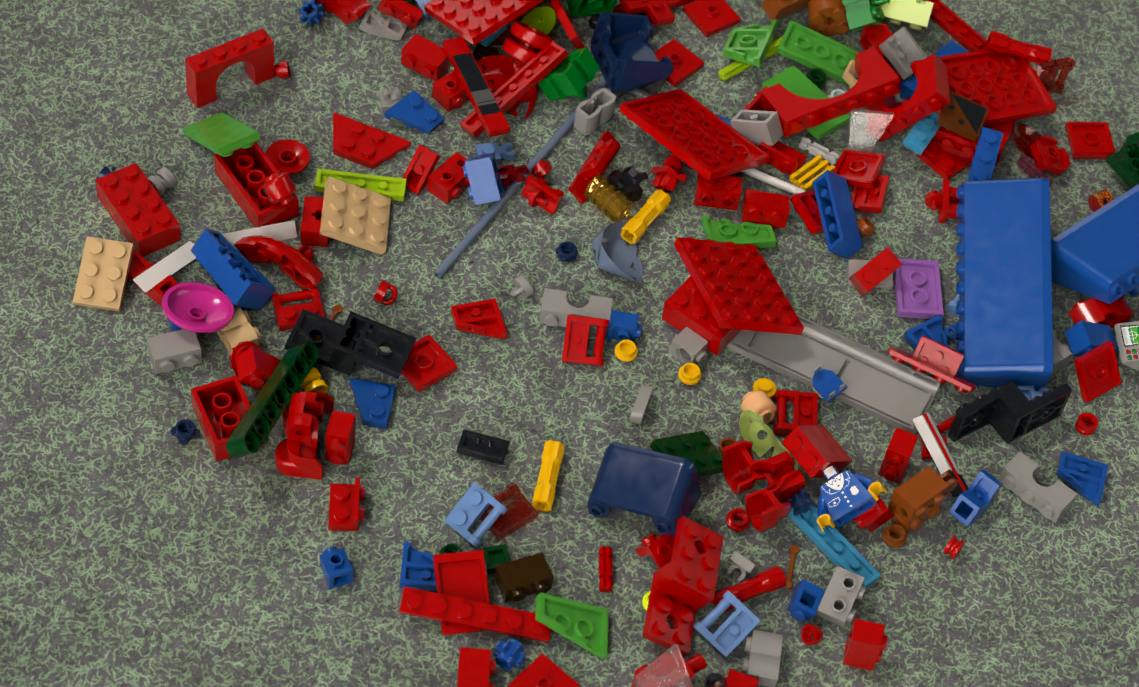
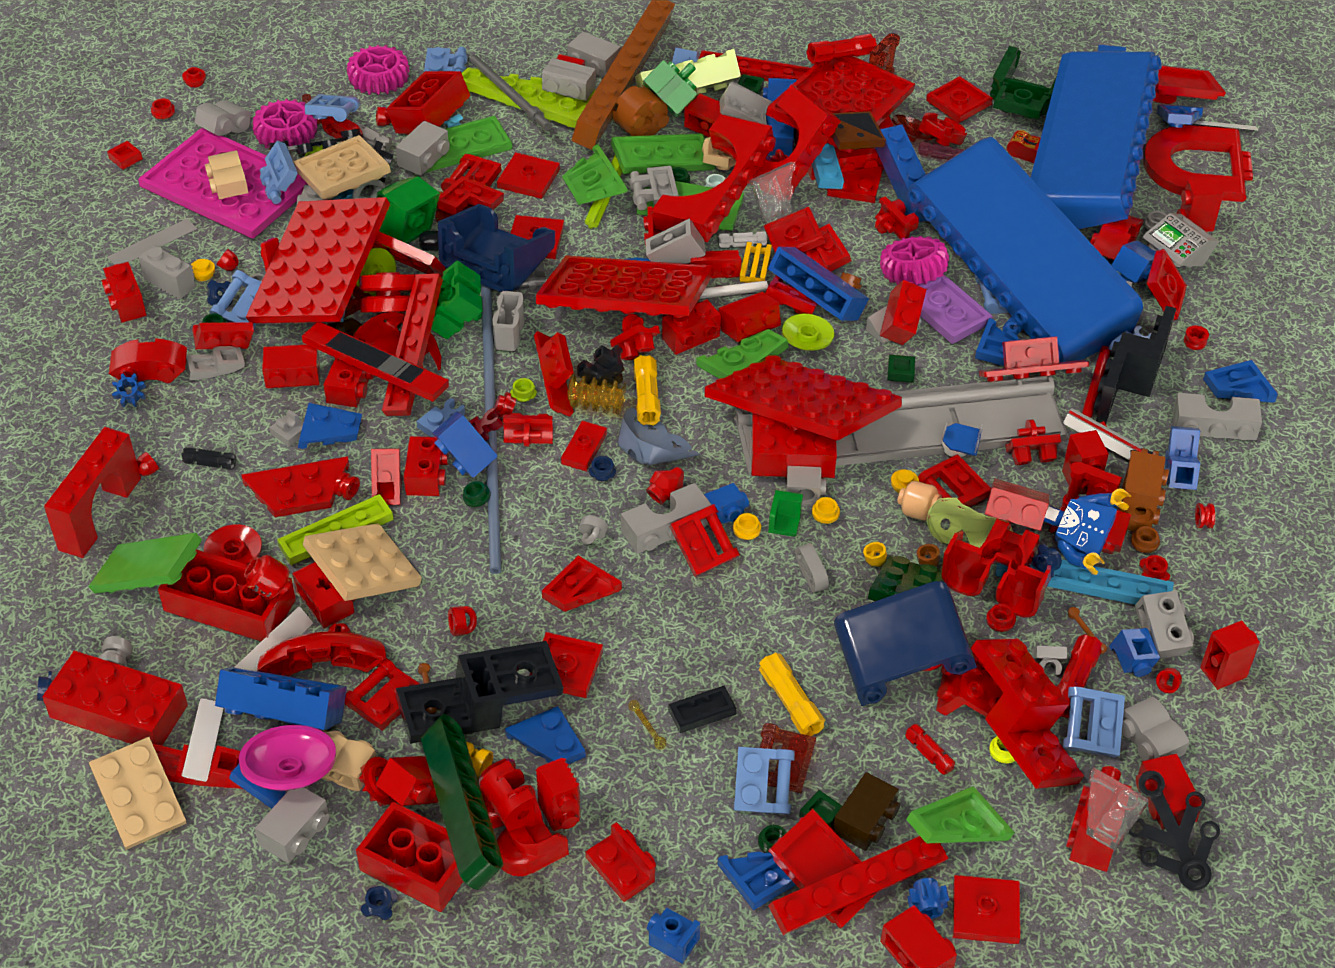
camera: 30 degrees left, 5 degrees down
(325, 89) = (209, 458): none -> black axle
(392, 160) = (346, 486): none -> red bush
(439, 450) = (659, 742): none -> clear yellow hinge
(469, 217) = (476, 494): none -> dark green plate
(564, 166) = (523, 390): none -> lime plate
(570, 228) = (584, 446): none -> red plate
(597, 286) = (665, 482): none -> red rock
(658, 358) = (785, 513): none -> green panel
(693, 423) = (870, 554): none -> yellow hinge
(792, 73) = (660, 182): none -> light grey plate
(797, 244) = (808, 332): none -> lime dish
(840, 310) = (901, 368): none -> dark green plate
(869, 417) = (1044, 444): none -> red hips
(882, 553) = (1155, 567): none -> red plate
(887, 474) = (1099, 481): none -> red plate
(924, 240) = (914, 260): none -> dark pink gear
(936, 38) = (752, 83): none -> dark green plate

